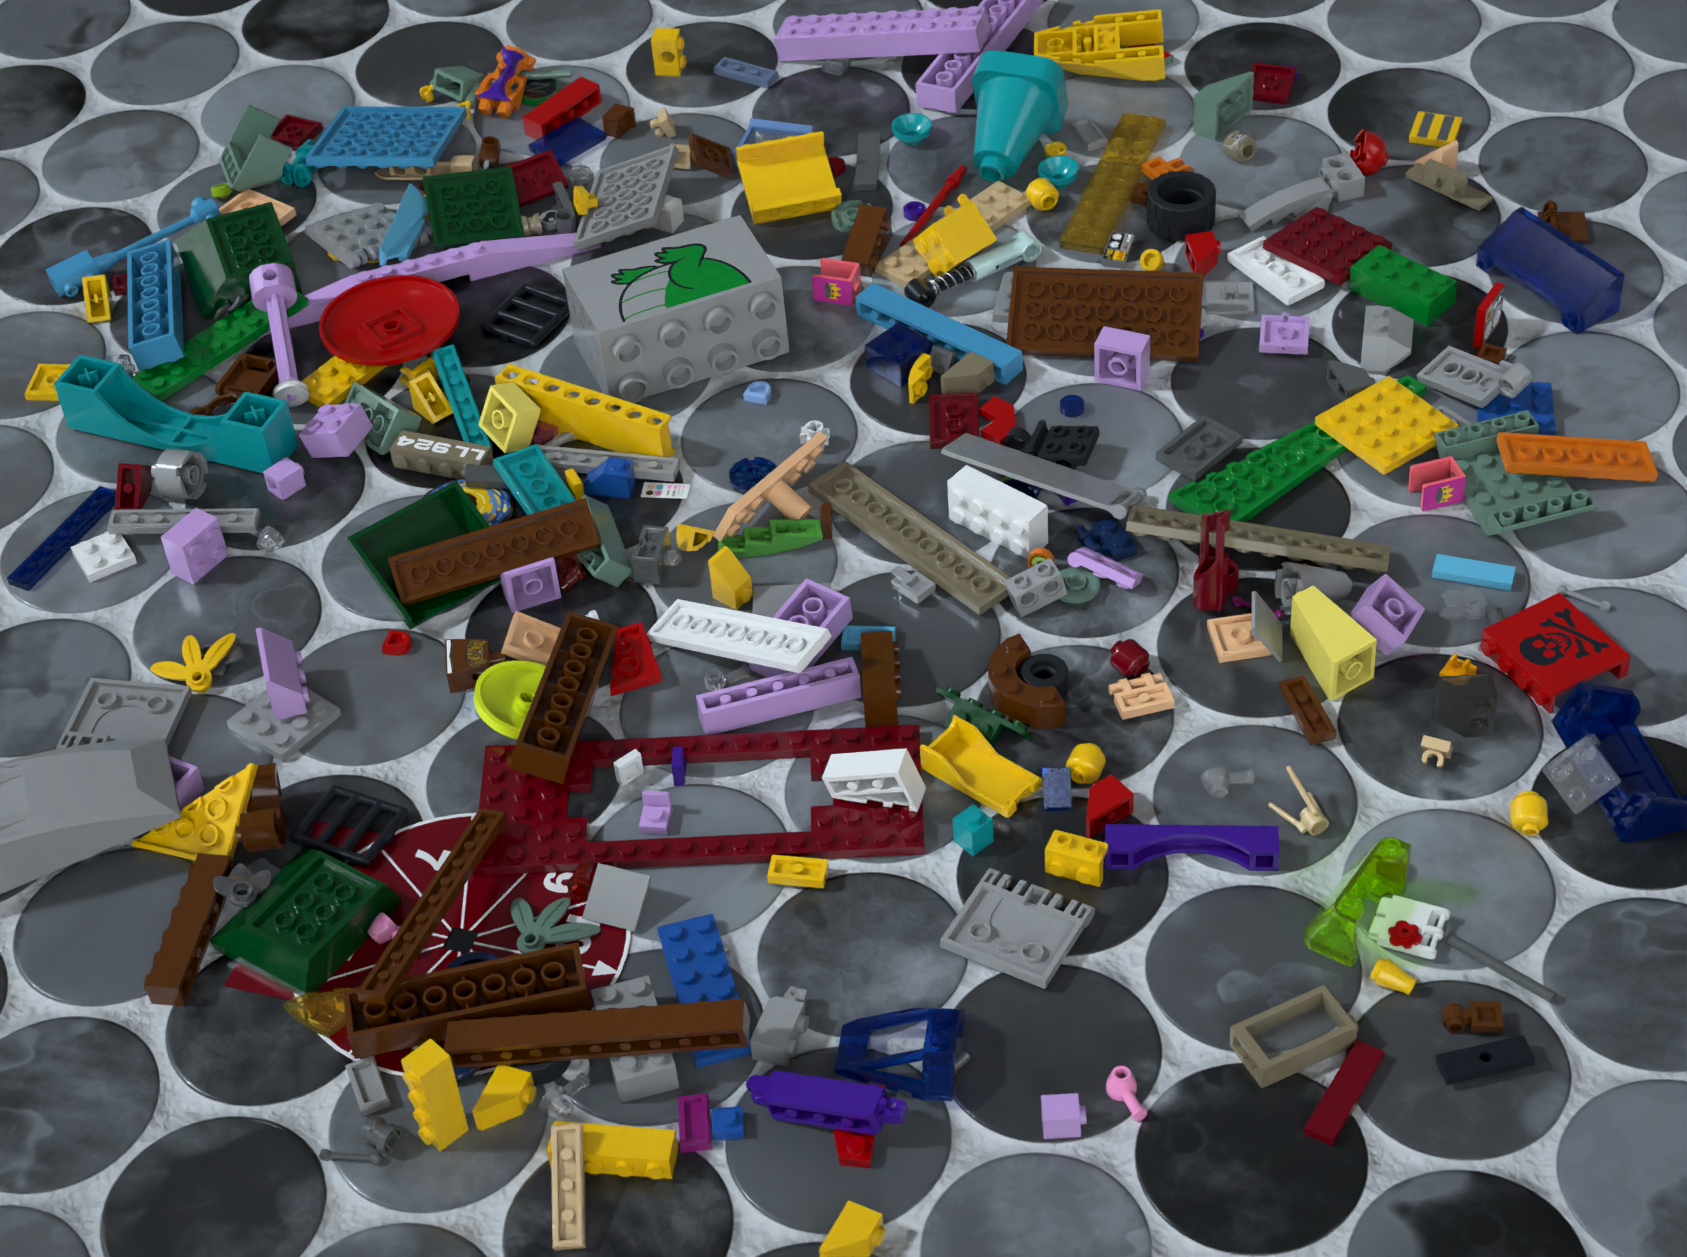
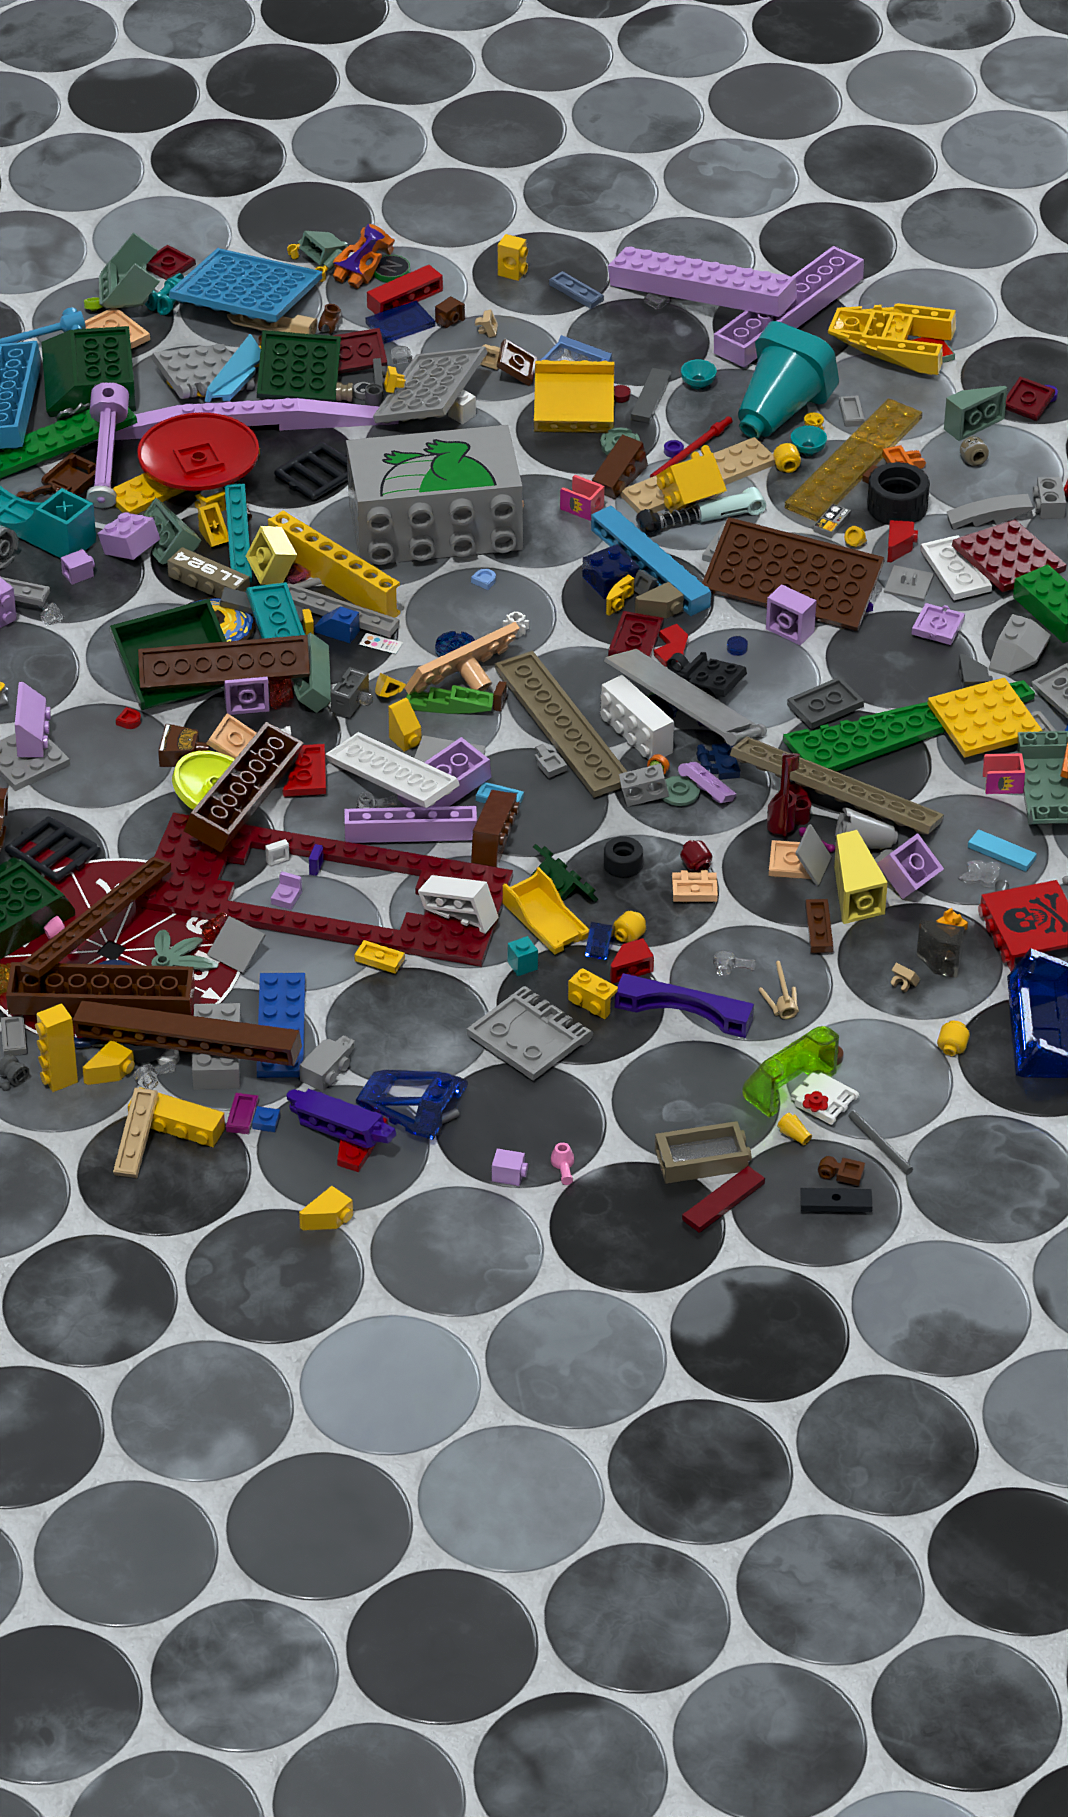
camera: 10 degrees right, 0 degrees up
(546, 74) = (400, 255): sand green bar -> none
(1016, 699) = (594, 867): reddish brown brick -> none
(1581, 774) = (1004, 1017): clear bracket -> none

